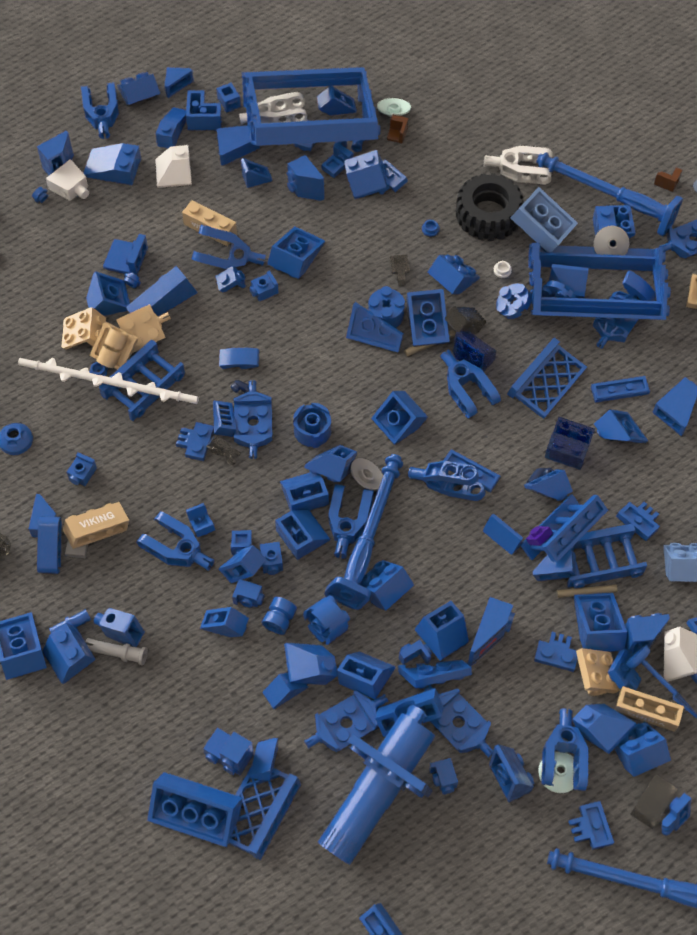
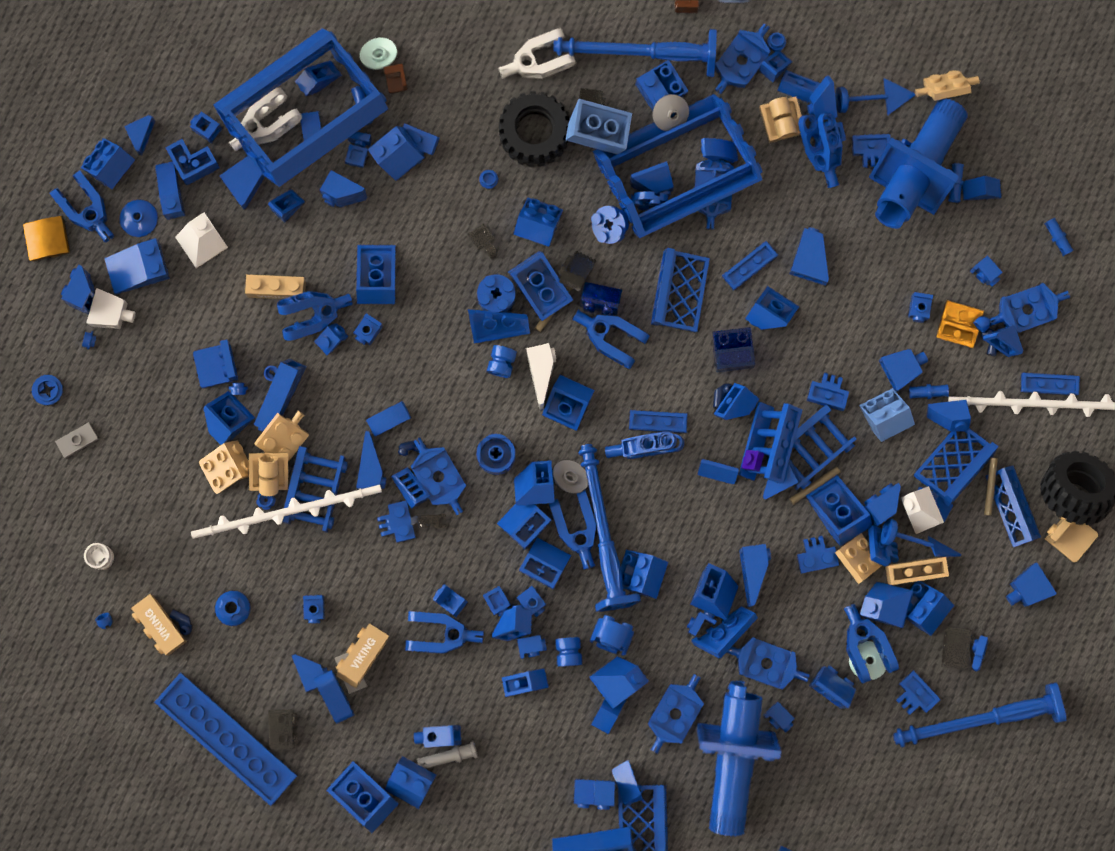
camera: 30 degrees left, 20 degrees up
(58, 116) = (46, 238): none -> pearl gold slope
(76, 620) = (394, 754): blue pin -> none
(142, 137) = (141, 226): none -> blue dish
(201, 384) = (370, 469): none -> blue slope
(362, 358) = (501, 361): none -> blue wheel
(364, 674) = (669, 664): blue slope -> none
(391, 376) = (541, 367): none -> white slope
(427, 701) = (713, 689): blue arch -> none
(502, 269) = (580, 191): white plate -> none

